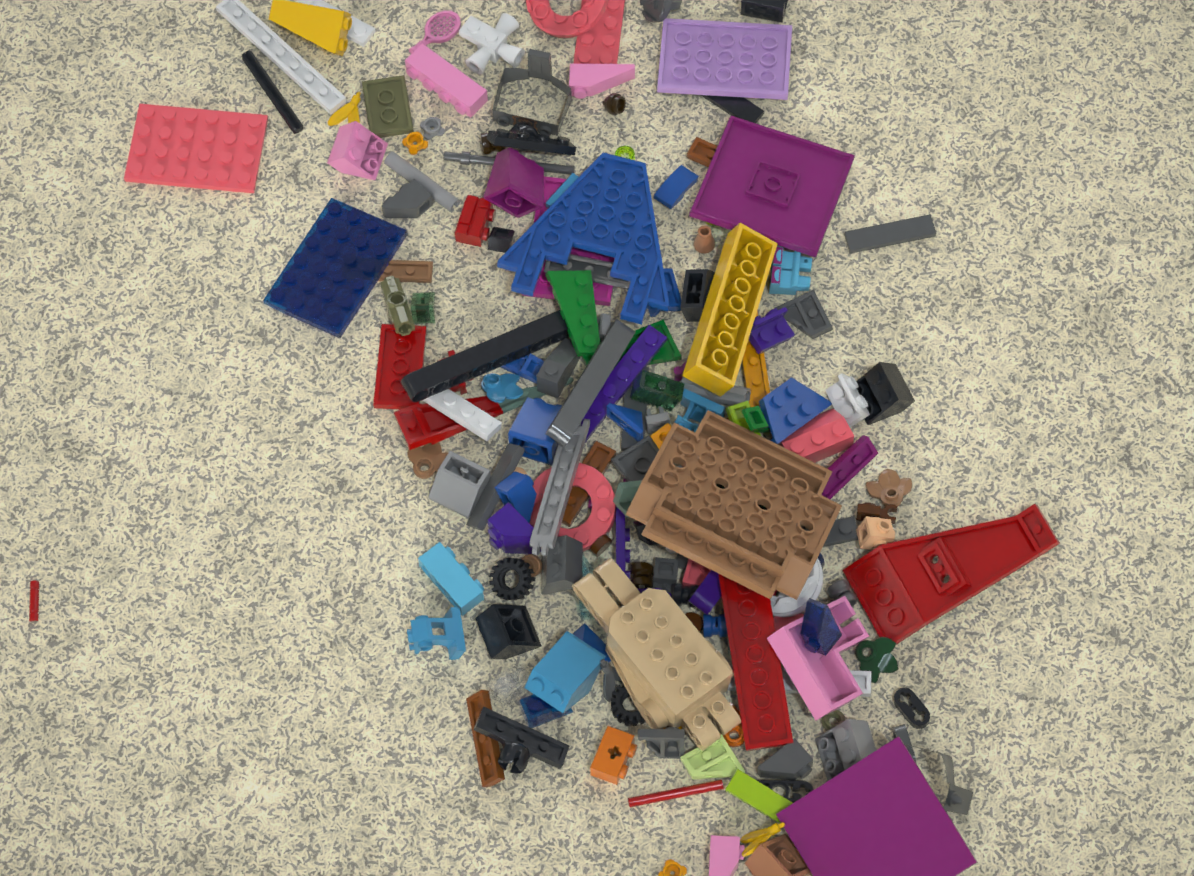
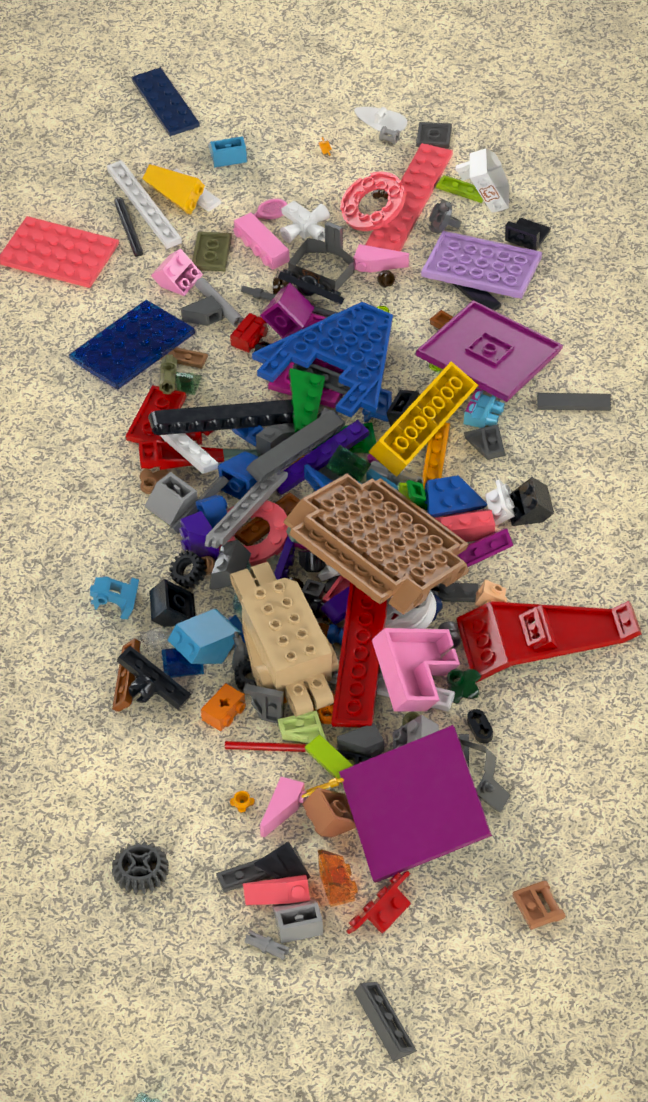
camera: 15 degrees right, 15 degrees down
(349, 110) = (185, 248): yellow piece -> none
(415, 137) = (223, 276): light orange plate -> none
(432, 122) = (240, 269): light grey plate -> none
(451, 578) = (141, 561): medium azure brick -> none
(501, 387) = (224, 442): dark azure plate -> none
(601, 545) = (270, 558): reddish brown tile -> none
(675, 186) = (412, 340): blue slope -> none
(704, 240) = (423, 376): nougat cone -> none
(770, 330) = (453, 443): dark purple bracket -> none
(819, 628) = (416, 640): clear blue slope -> none
(871, 510) = (497, 580): reddish brown plate -> none
(889, 484) = (514, 571): medium nougat plate -> none

